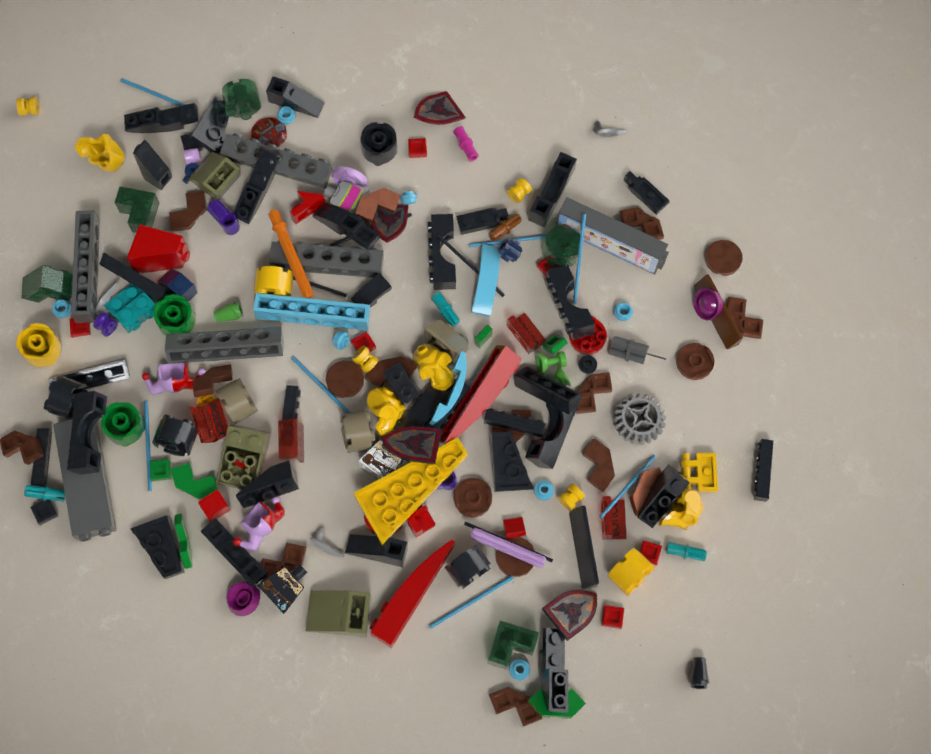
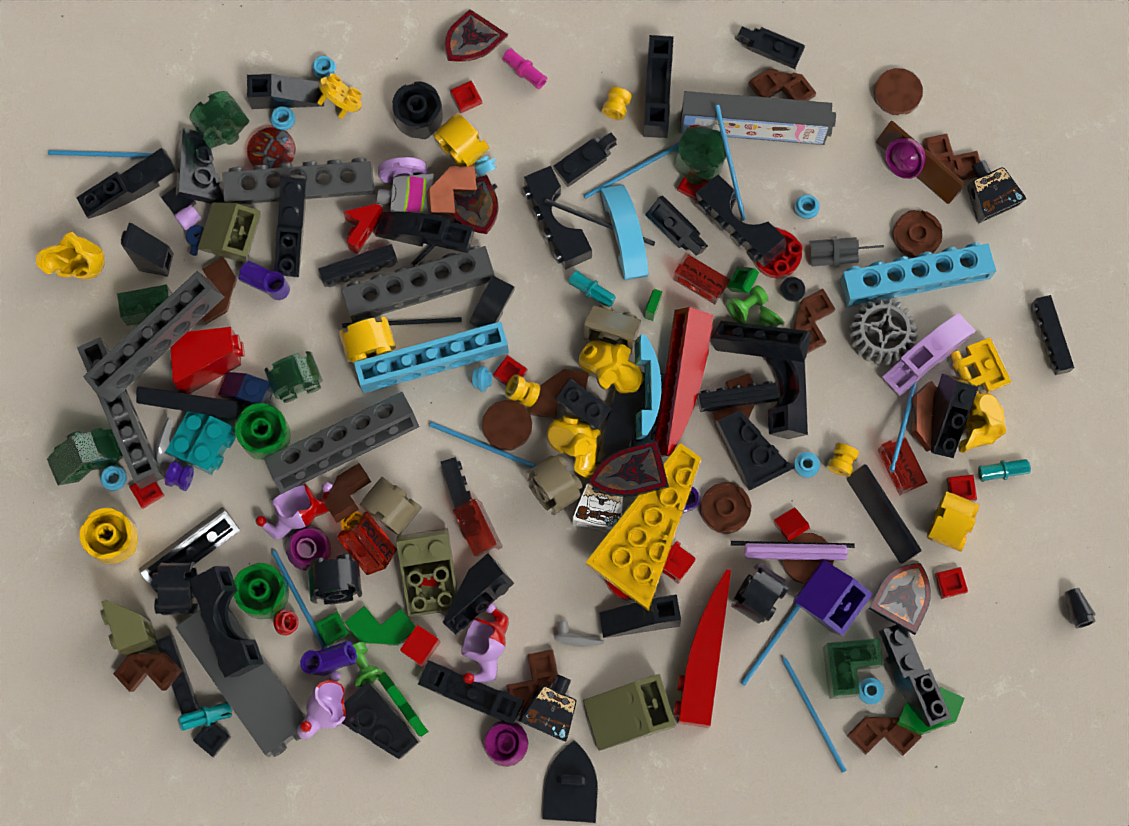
camera: 20 degrees left, 5 degrees up
(20, 413) = (129, 629): none -> olive slope
(126, 221) = (153, 336): none -> dark grey brick
(127, 519) = (324, 707): none -> lavender piece
(135, 452) = (291, 622): none -> red plate
(146, 488) = (328, 659): none -> dark purple piece
(169, 404) = (301, 544): none -> magenta hat
(169, 509) = (366, 672): none -> bright green piece
(212, 287) = (294, 376): none -> clear green brick
(229, 312) = (327, 399): bright green cone -> none
(275, 649) = (571, 787): none -> black shield
(290, 253) = (374, 295): orange axle -> none
(295, 232) = (358, 266): none -> black piece
(329, 88) = (319, 63): none -> medium azure plate
(330, 113) = (340, 94): none -> yellow plate
(398, 174) = (460, 141): none -> yellow brick
(471, 671) = (814, 714): none -> dark azure piece
(504, 227) = (619, 158): dark orange axle -> none
(510, 250) = (639, 183): dark blue gear -> none
(519, 590) = (832, 598): none -> dark purple slope
(523, 289) = (676, 226): none -> black hinge
(602, 458) = (857, 396): copper tile -> none
(665, 446) = (928, 353): none -> lavender slope
(690, 396) = (858, 293): none -> medium azure brick
(762, 352) = (993, 192): none -> torso

